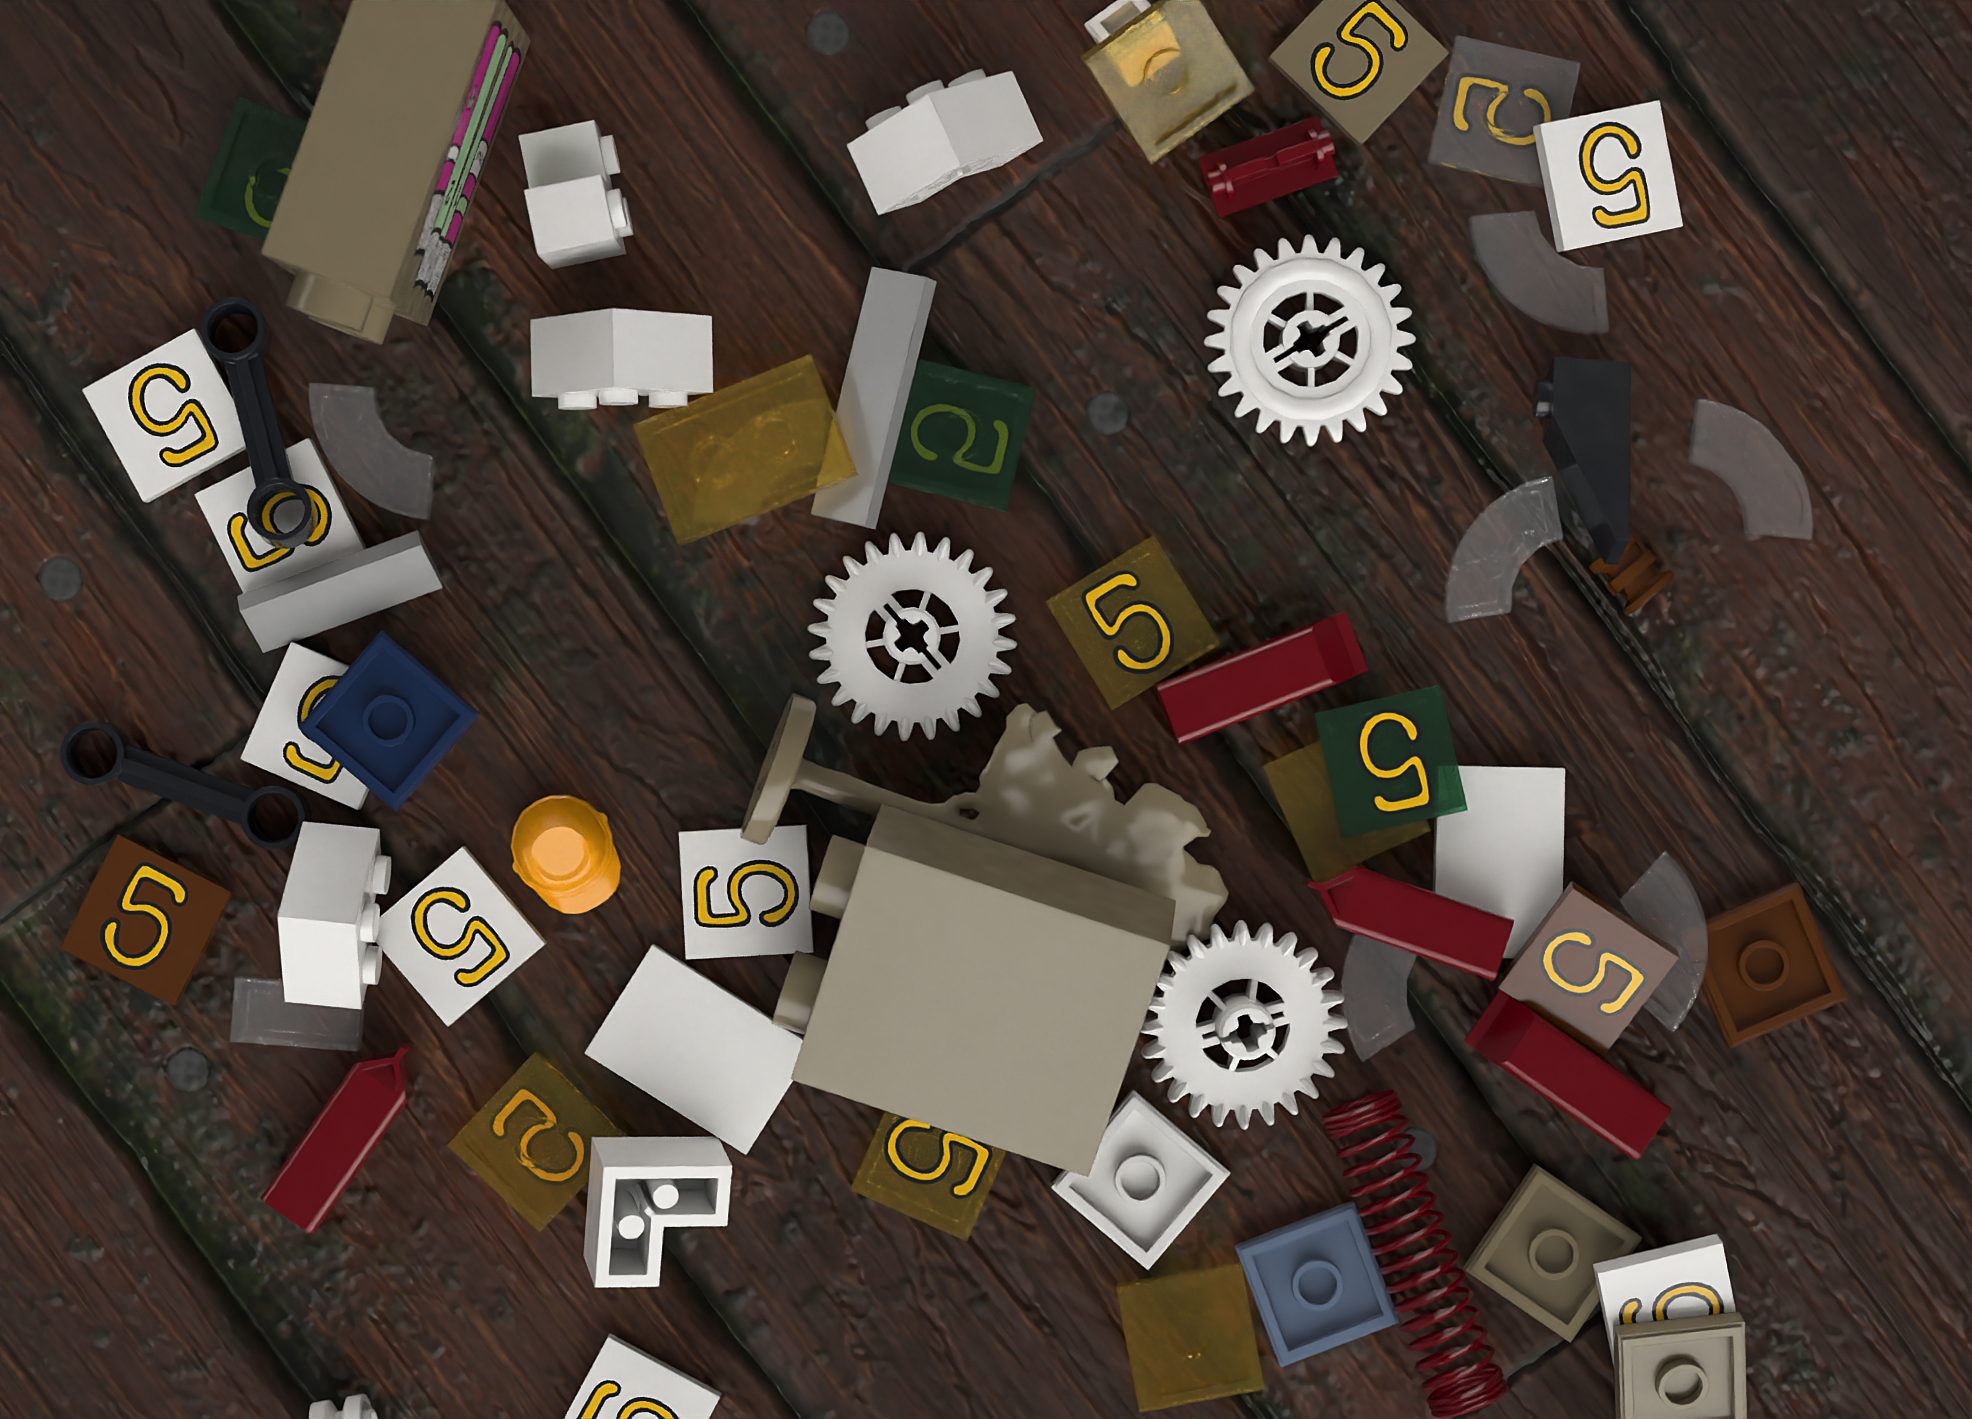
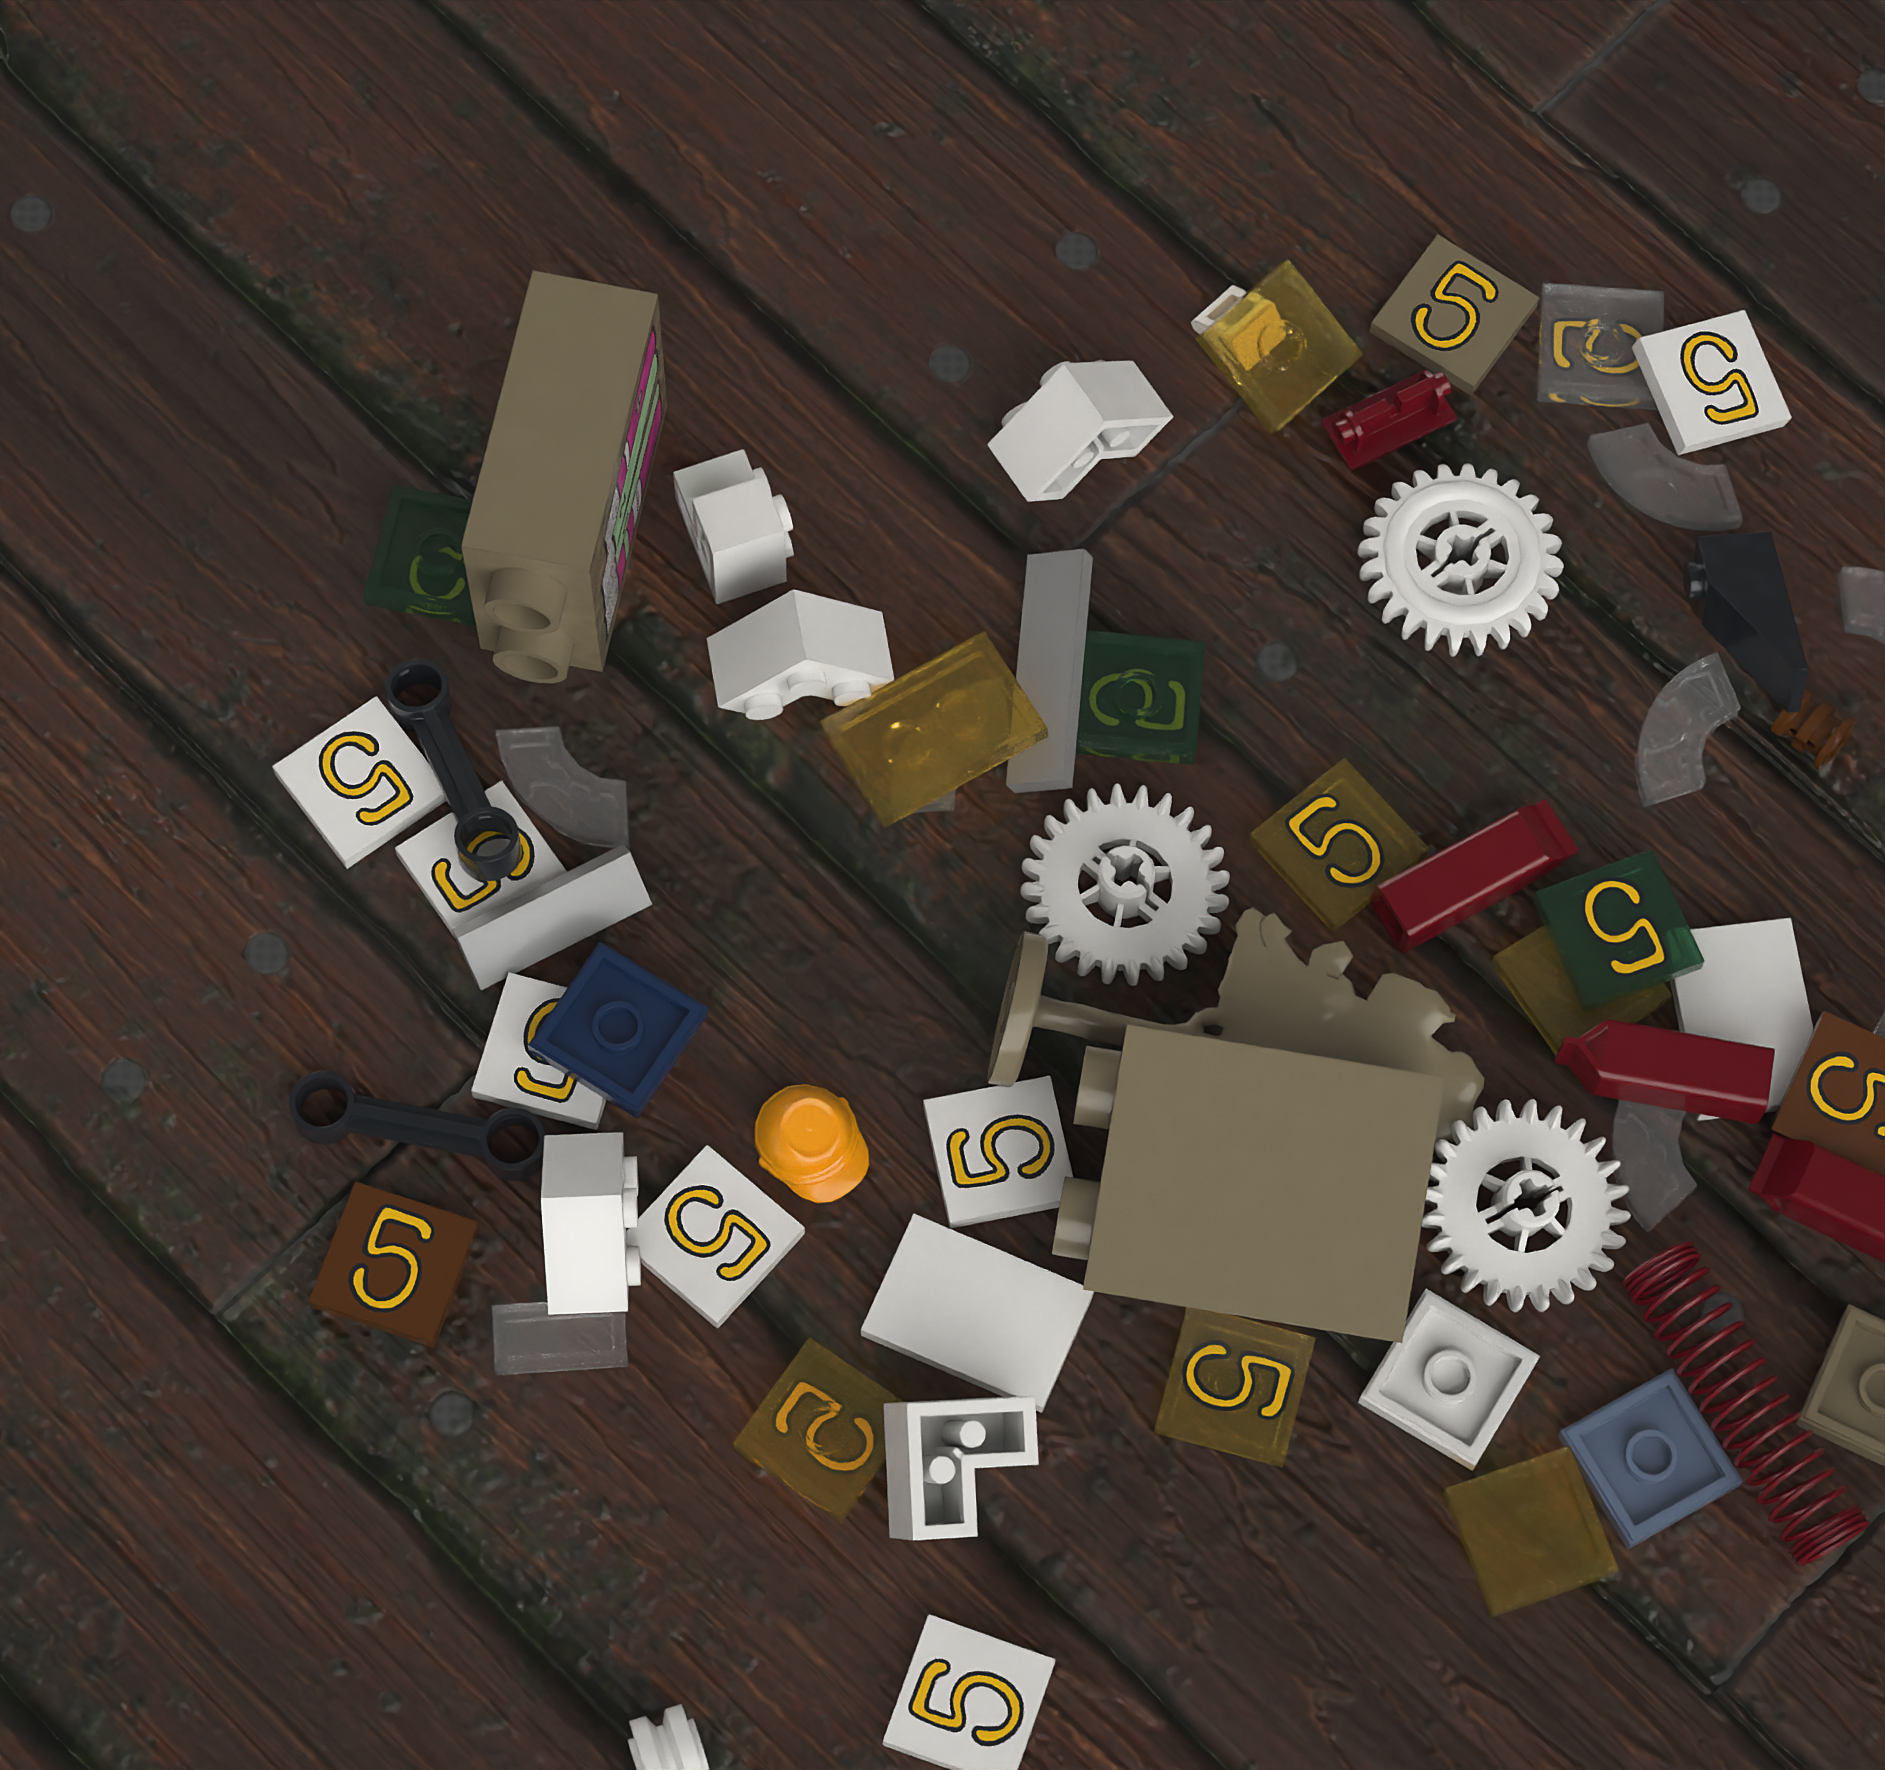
camera: 15 degrees left, 20 degrees down
(341, 1139) = (623, 1448): dark red piece -> none

